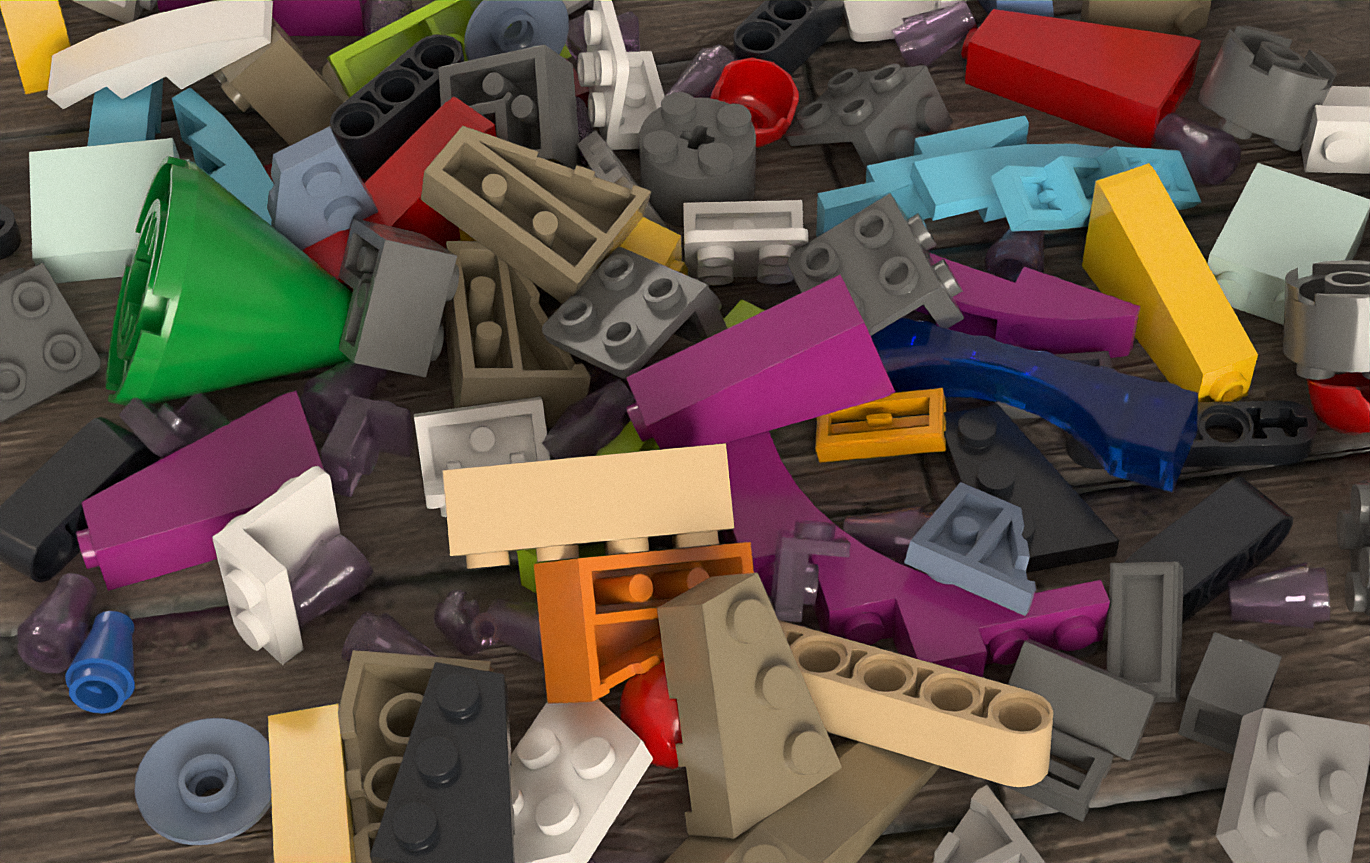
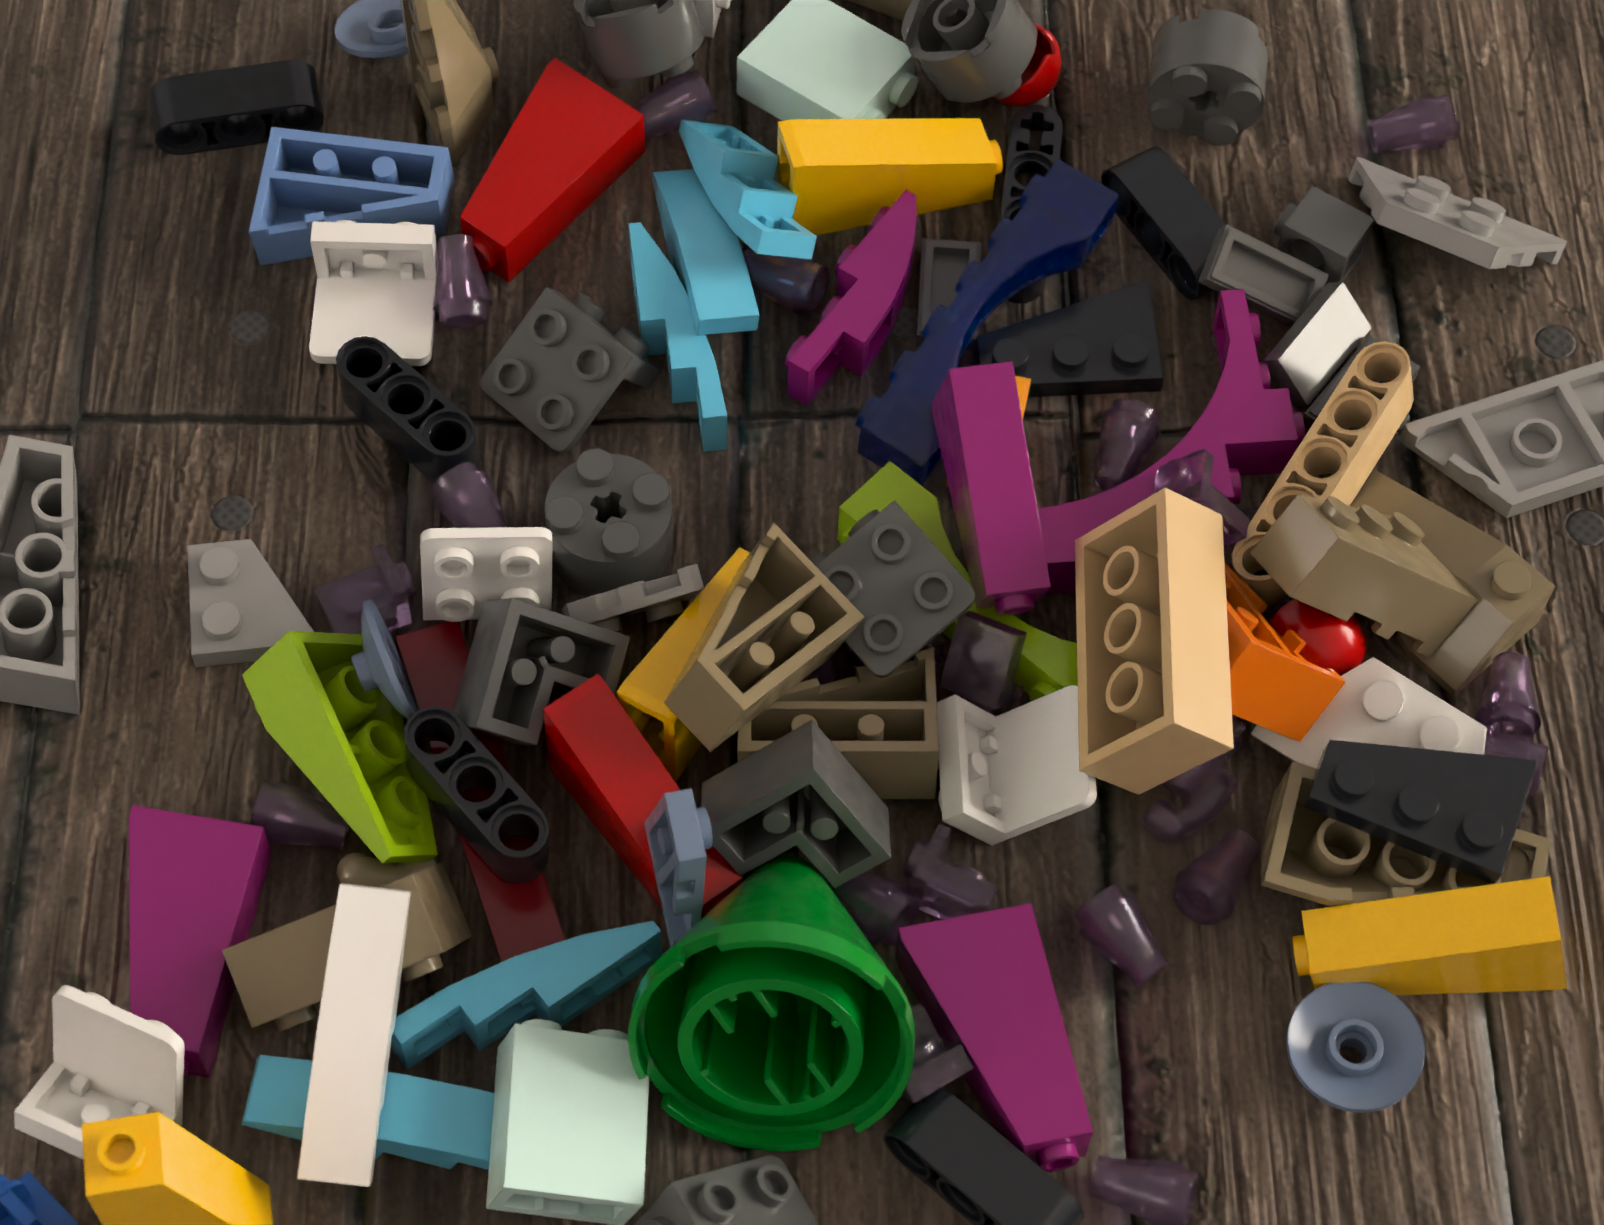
camera: 85 degrees left, 10 degrees up
(104, 665) = (1204, 1143): blue cone -> none
(265, 551) = (1124, 978): white bracket -> none
(742, 240) = (738, 496): white bracket -> none
(764, 91) = (526, 458): red hair -> none
(882, 265) = (861, 380): dark grey bracket -> none
(976, 546) = (1182, 369): sand blue wing -> none
(1282, 597) = (1224, 174): cone -> none

